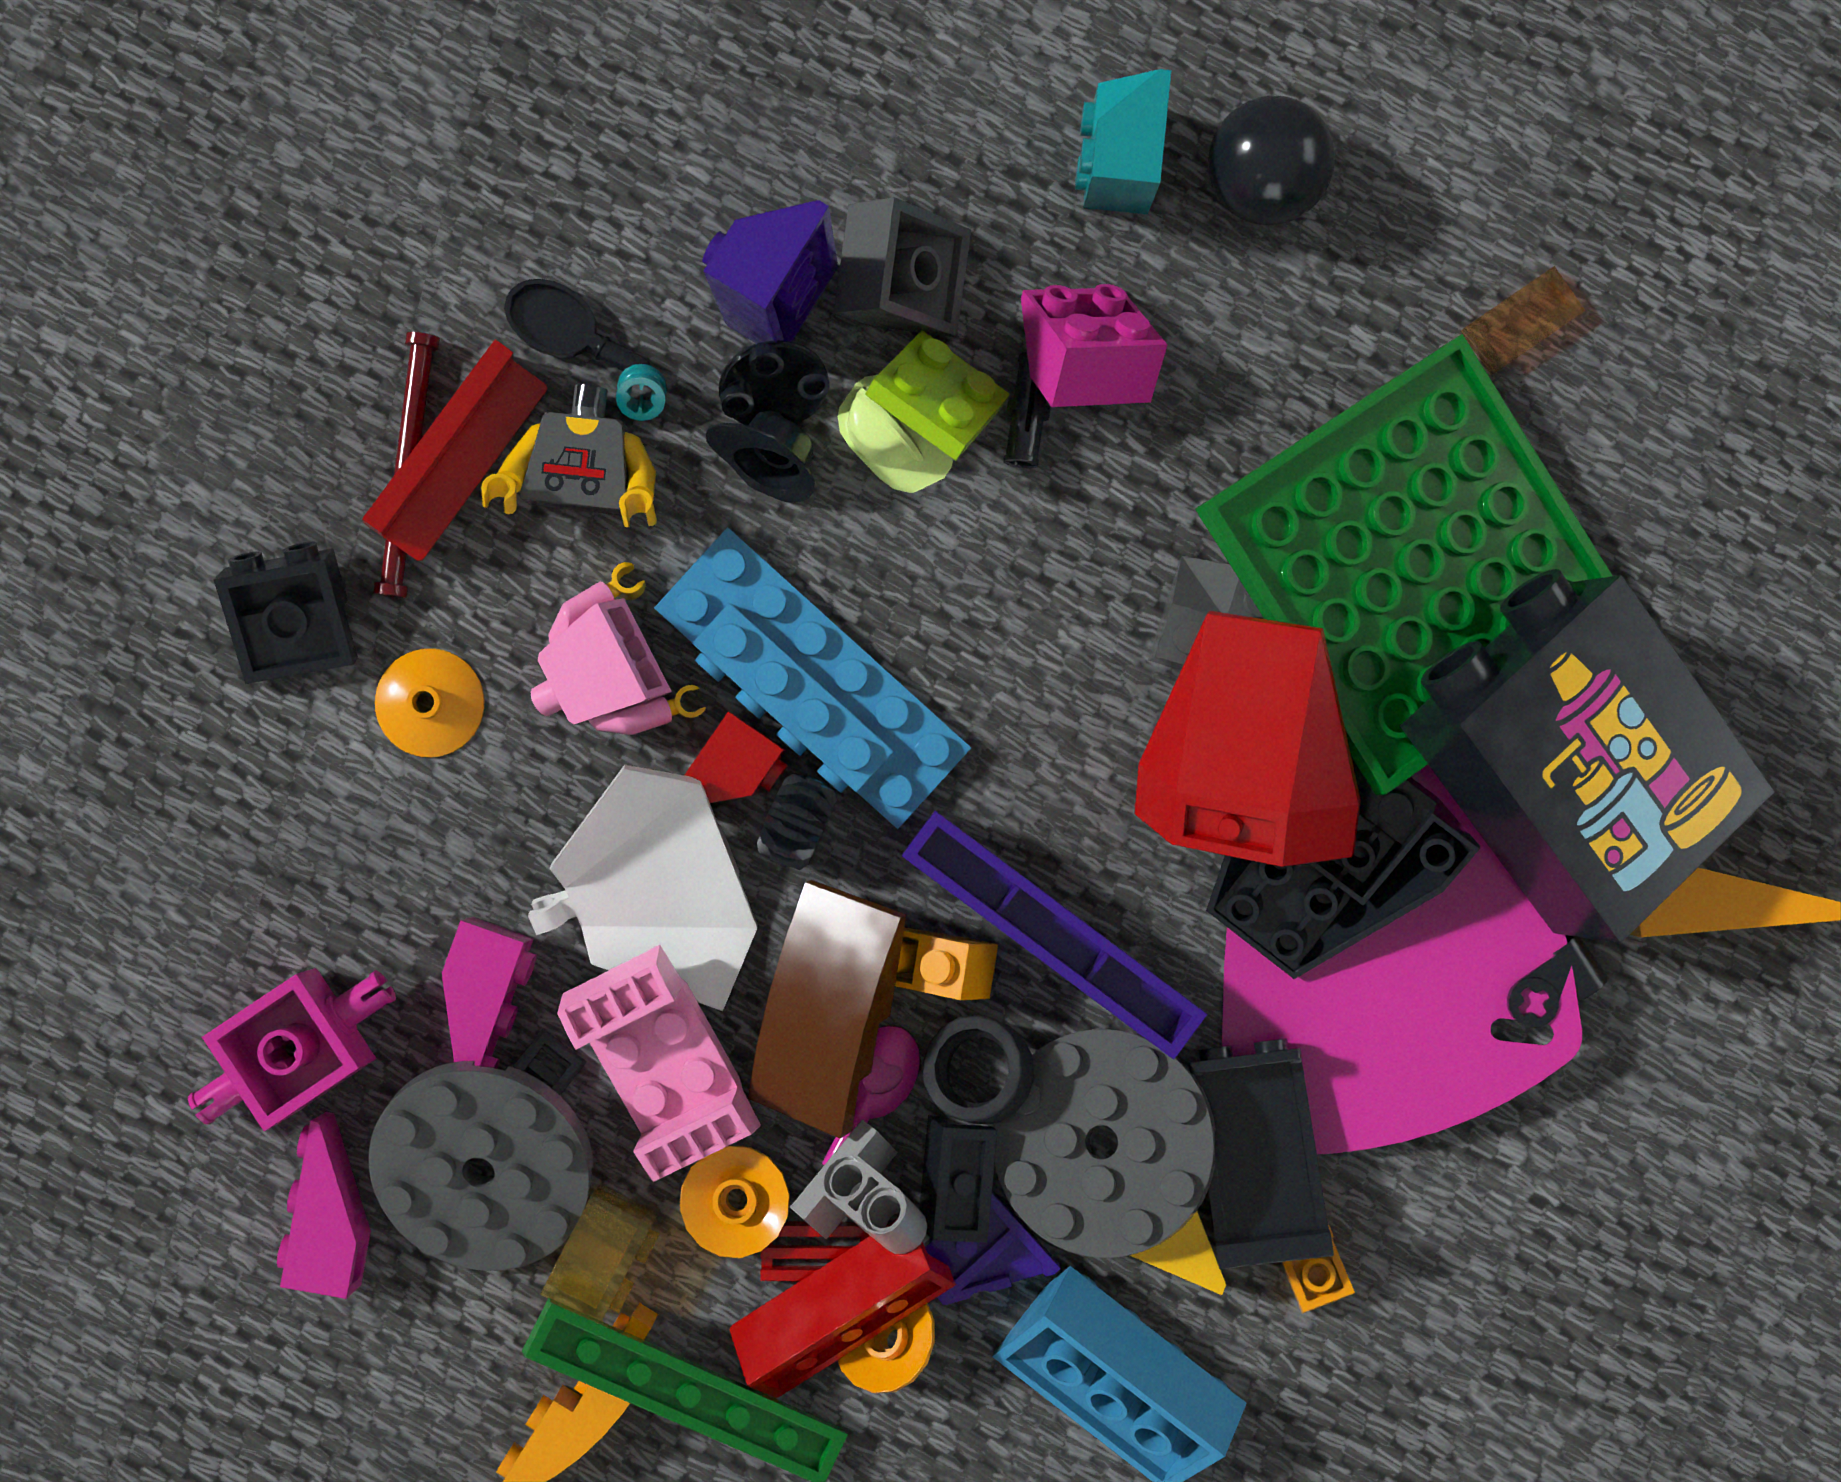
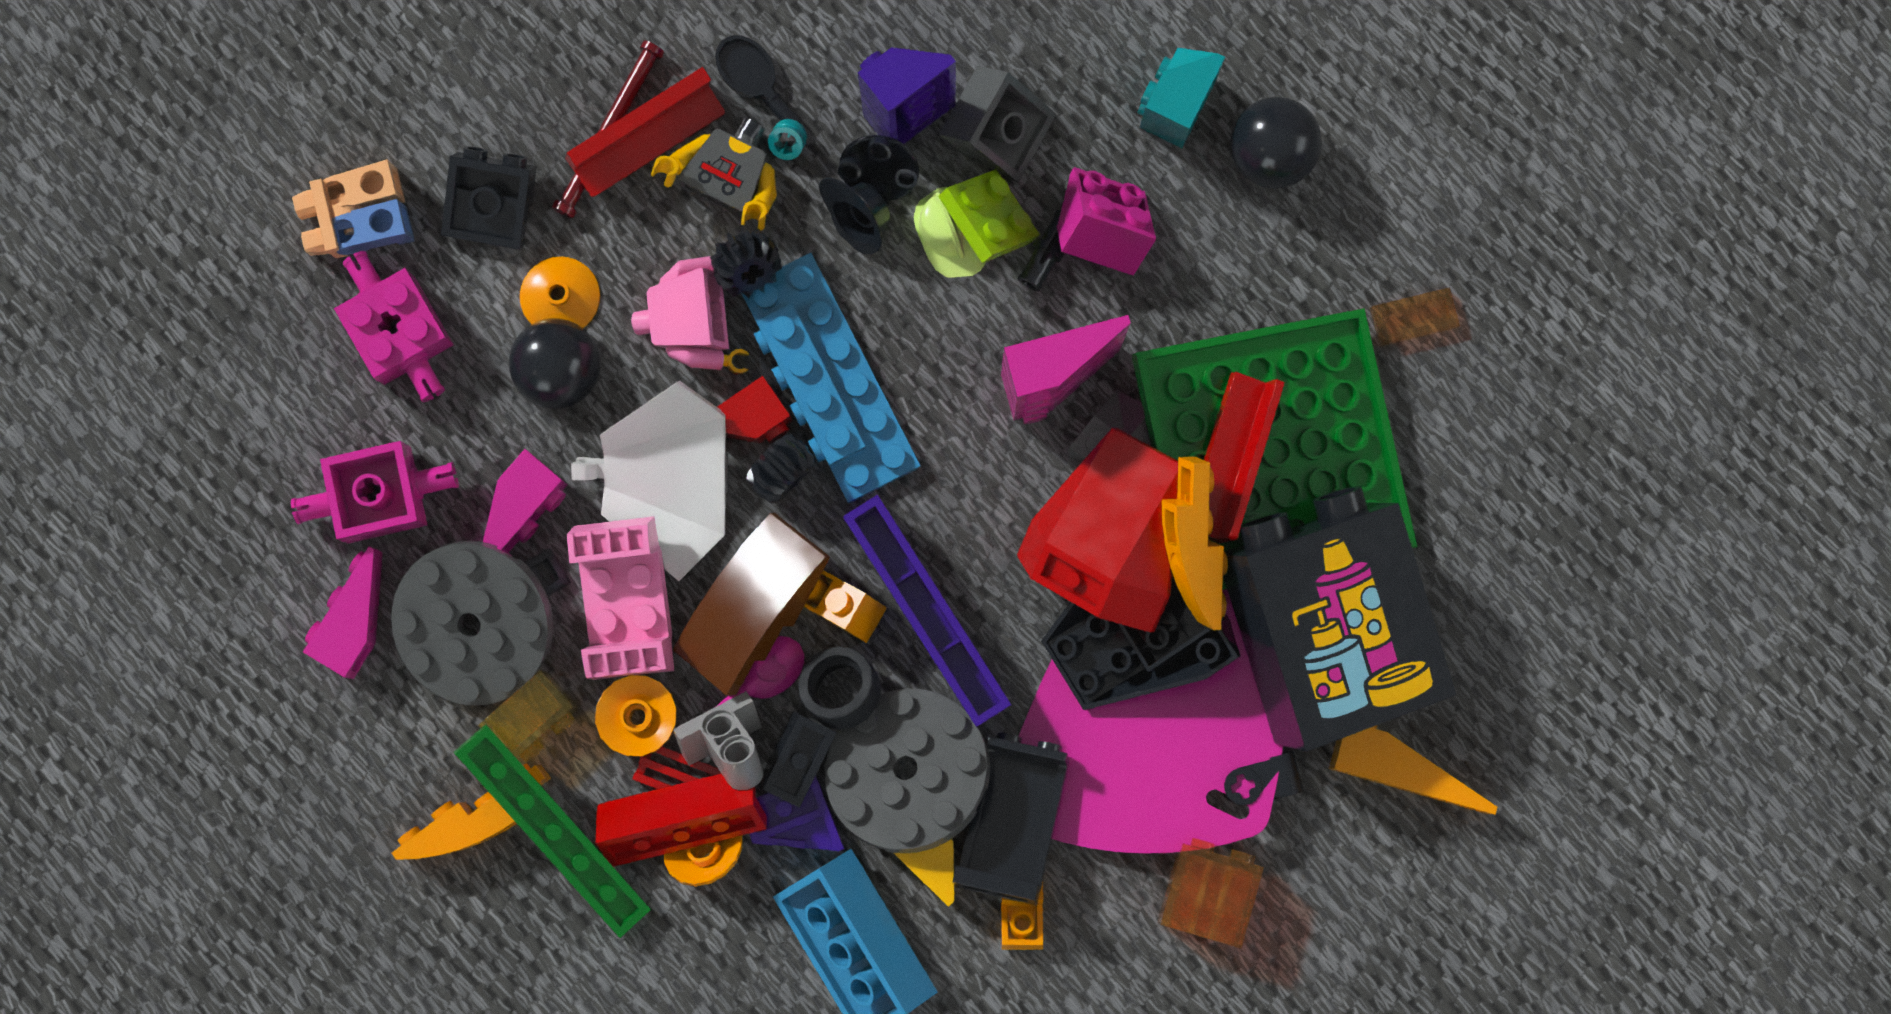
camera: 25 degrees right, 5 degrees down
(123, 694) = (355, 211): none -> light nougat hips
(196, 826) = (369, 319): none -> dark pink brick
(456, 792) = (554, 363): none -> black piece
(650, 574) = (746, 262): none -> black gear
(1091, 578) = (1052, 367): none -> dark pink slope
(1379, 593) = (1238, 448): none -> red panel
(1379, 746) = (1195, 560): none -> light orange slope
(1542, 1151) = (1211, 893): none -> clear orange brick

